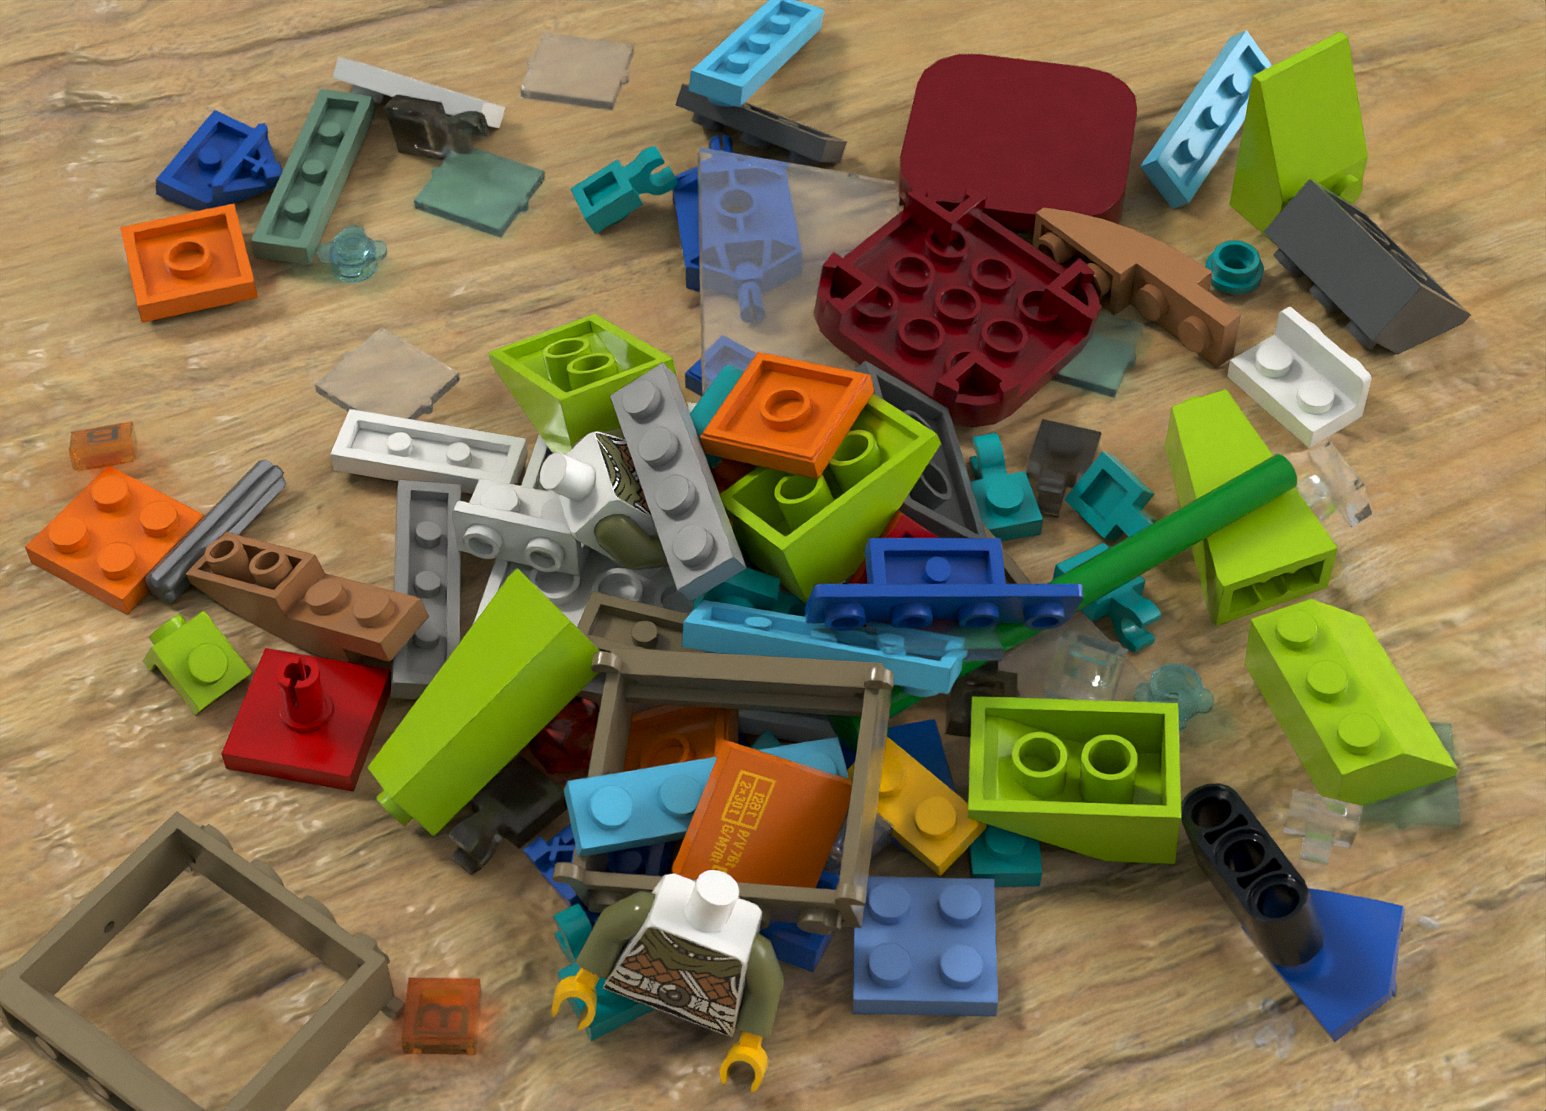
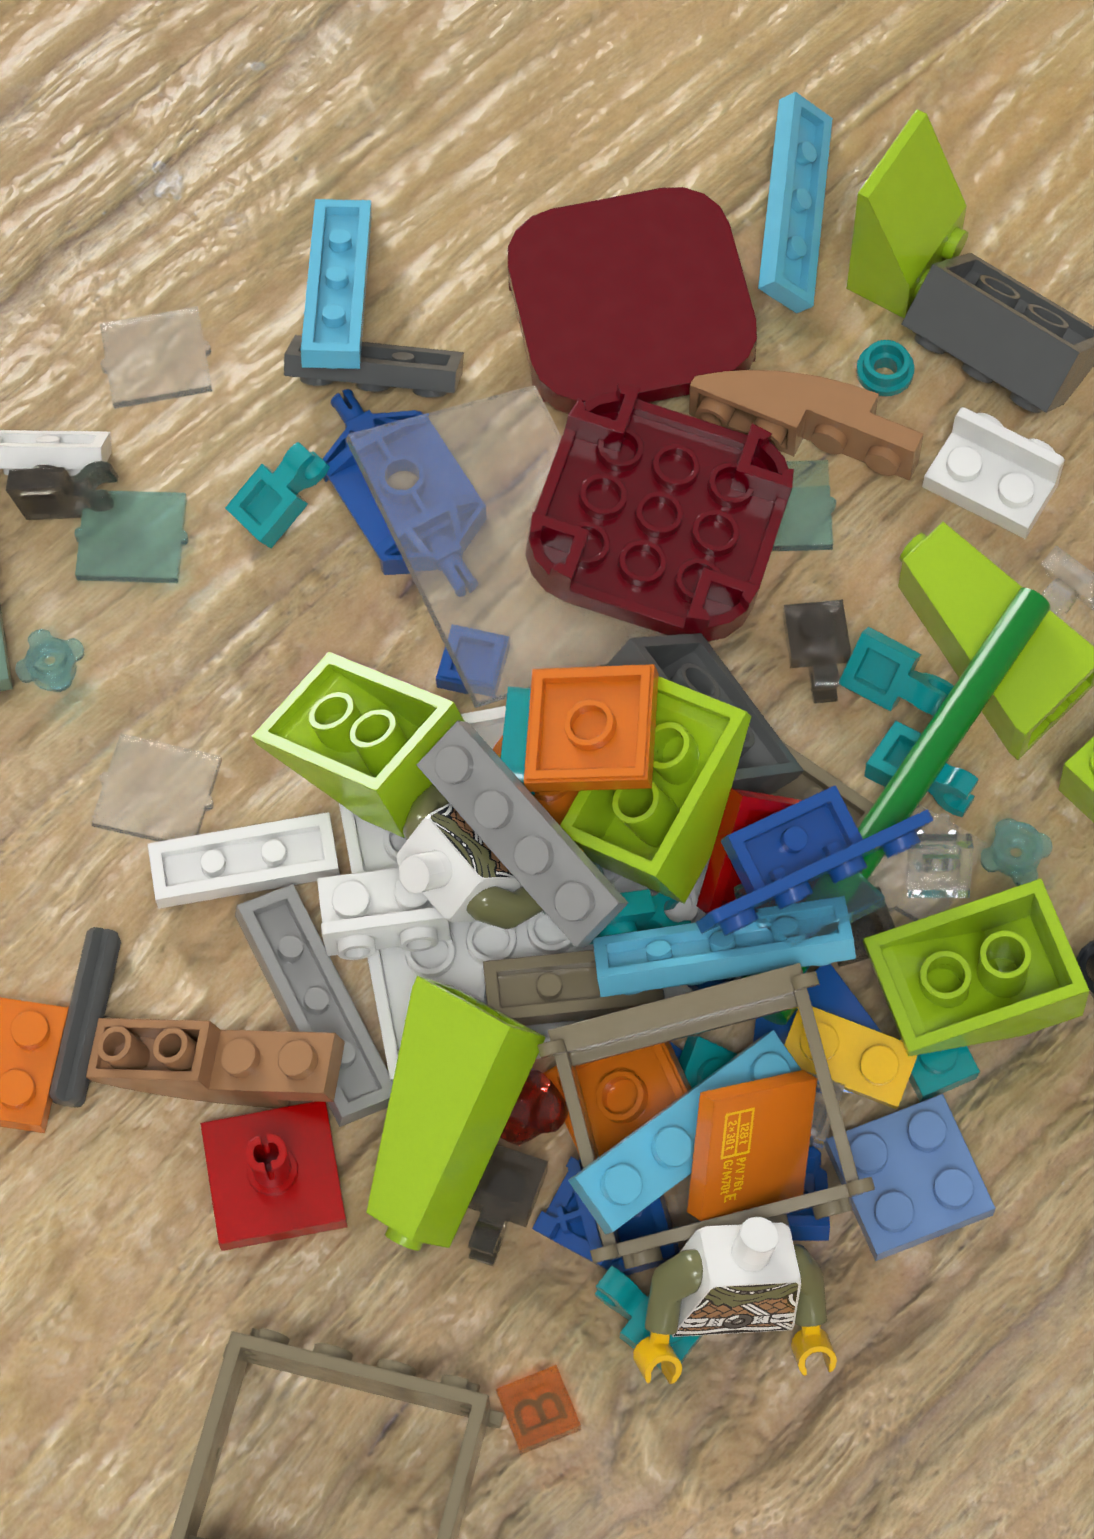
camera: 20 degrees left, 15 degrees up
(196, 660) = (143, 1161): lime bracket -> none
(1002, 499) = (783, 702): teal plate -> none

